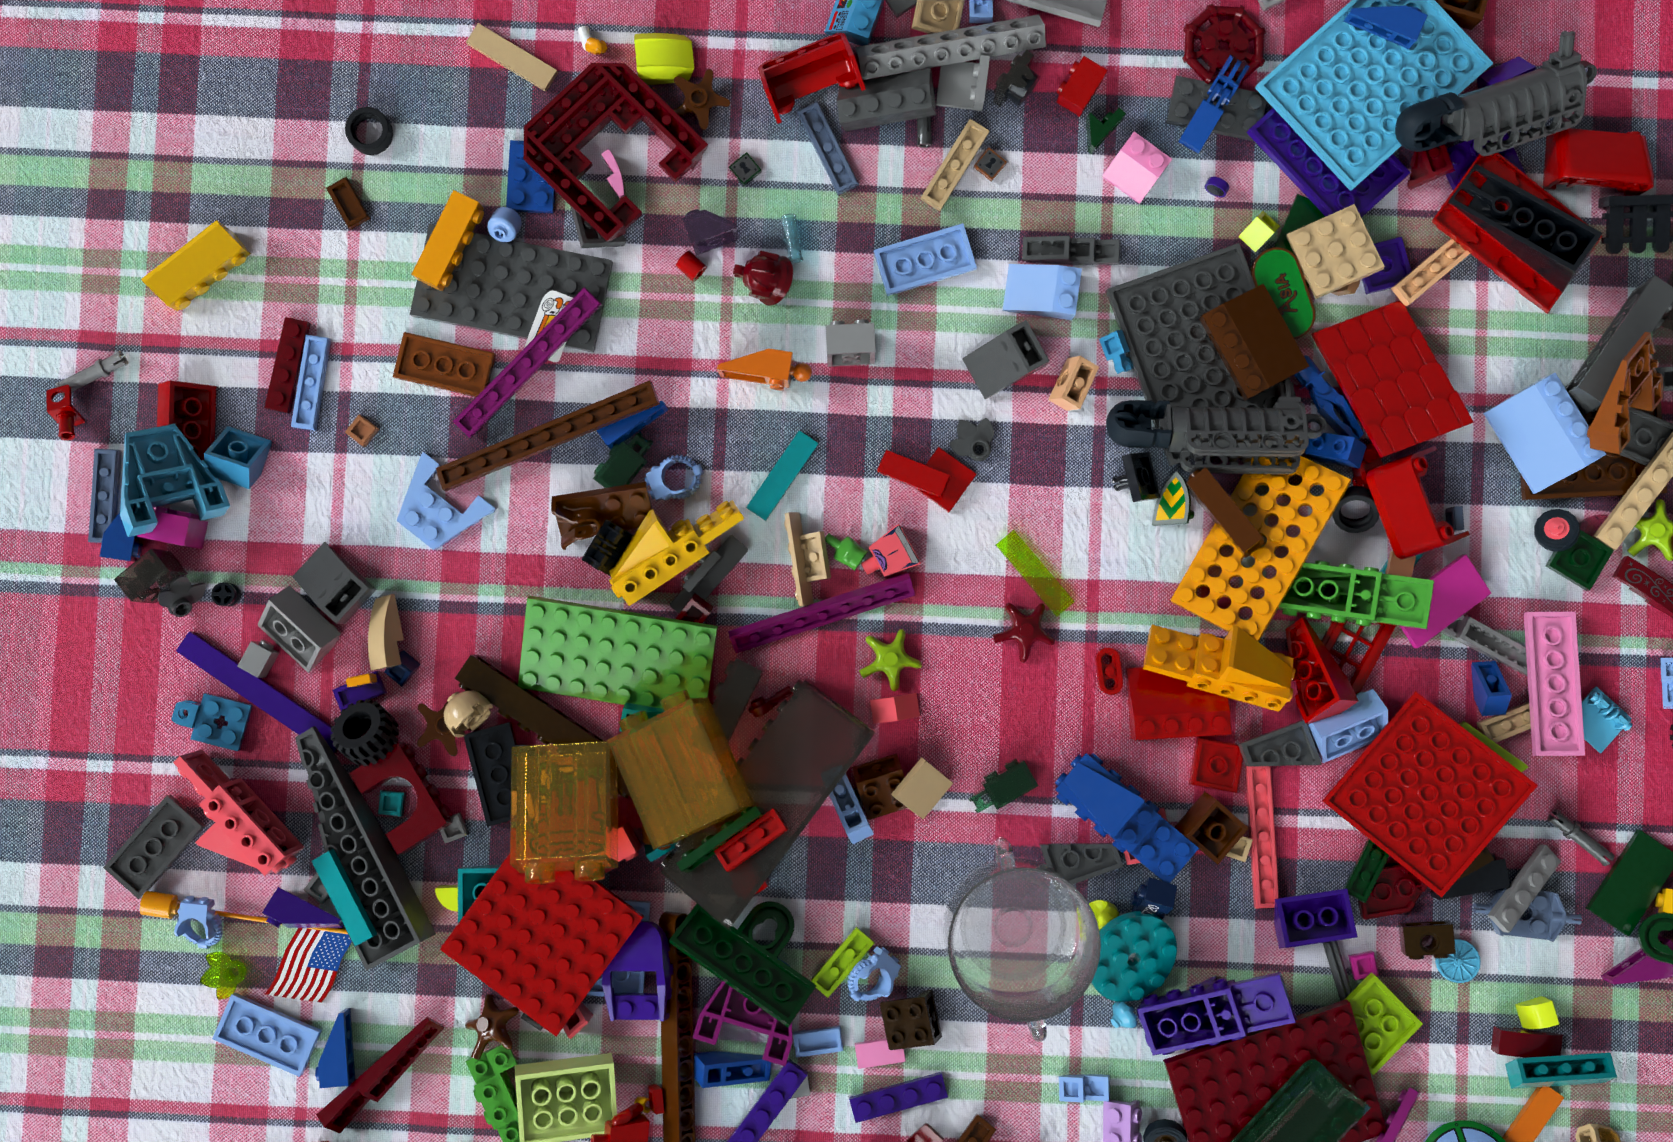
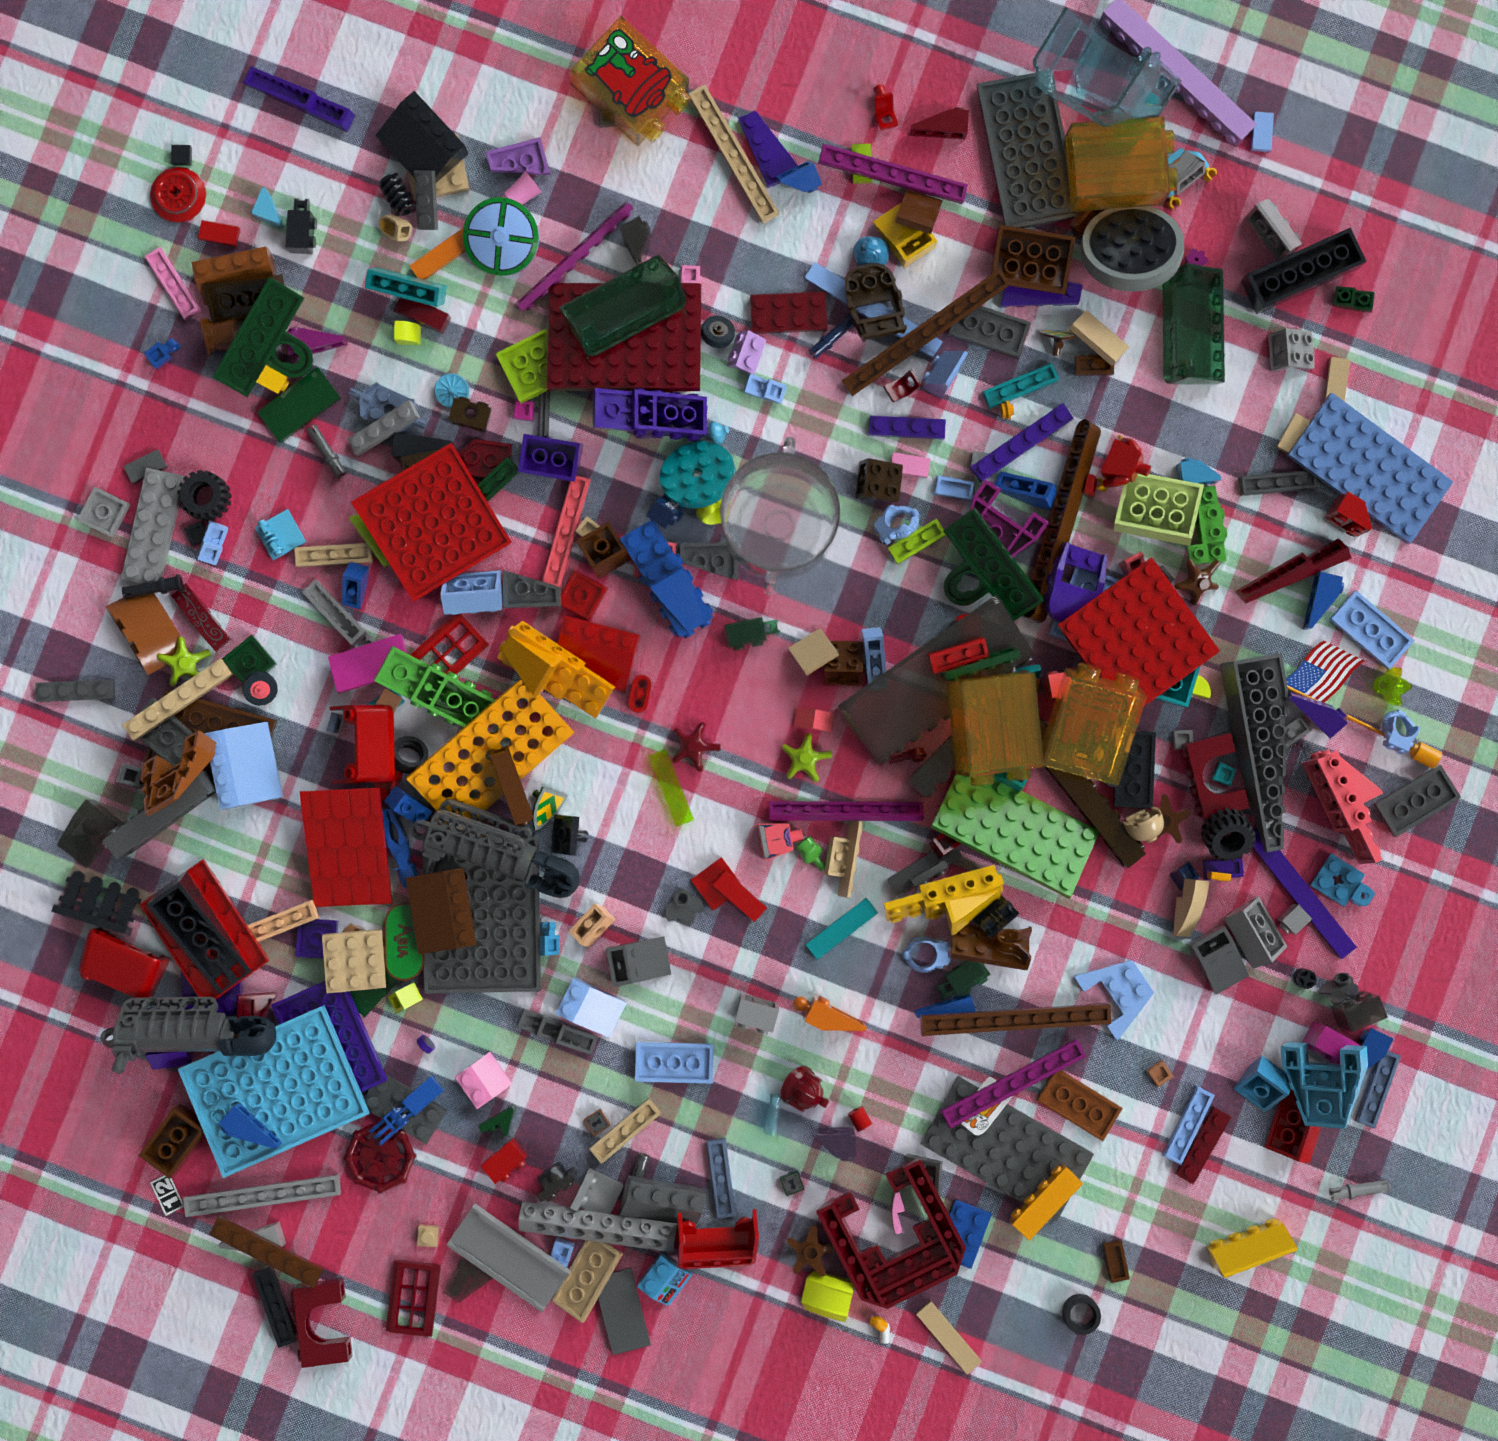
camera: 165 degrees left, 0 degrees up
(63, 412) = (1390, 1165): red bracket -> none
(344, 897) = (1281, 714): teal tile -> none
(504, 224) = (997, 1201): light blue head -> none
(1319, 679) = (482, 633): red wedge -> none
(1554, 684) = (305, 573): bright pink plate -> none

